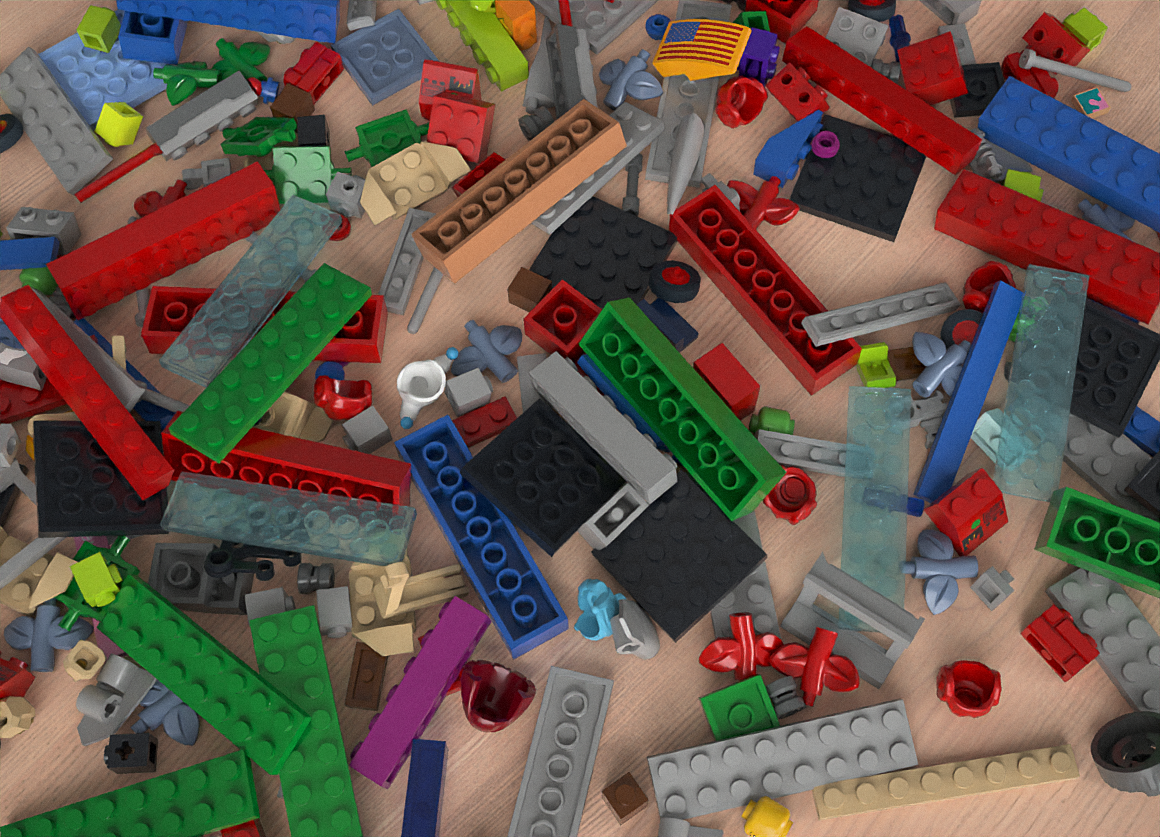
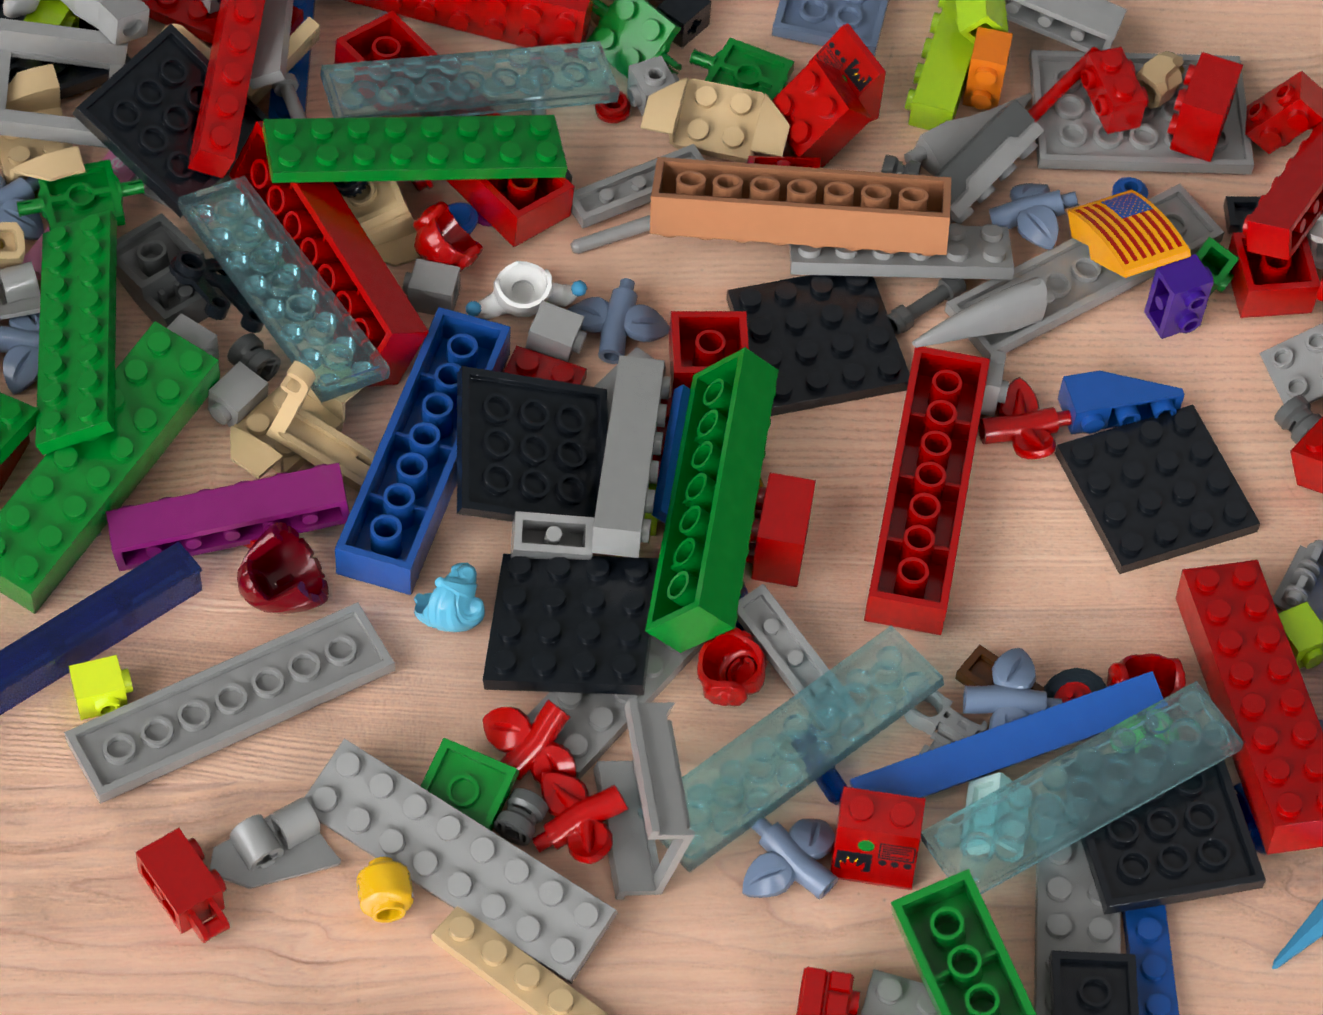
camera: 40 degrees right, 10 degrees down
(97, 579) = (81, 189): lime brick -> none
(365, 678) = (201, 469): reddish brown plate -> none
(528, 289) = (713, 294): reddish brown brick -> none
(624, 798) = (290, 754): reddish brown brick -> none
(634, 631) = (456, 633): light grey panel -> none
(669, 323) = (805, 442): dark blue panel -> none
(674, 281) = (855, 412): black wheel -> none
(740, 101) = (1117, 318): red hair -> none
(772, 420) = (796, 602): bright green head -> none
(796, 93) = (1184, 359): red brick -> none
(825, 138) = (1150, 416): magenta plate -> none
(874, 366) = (952, 646): lime bracket -> none
(880, 314) = (1008, 603): light grey tile -> none
(882, 100) = (1259, 437): red brick -> none
(968, 688) = (688, 963): red hair -> none
(993, 587) = (822, 918): light grey tile -> none

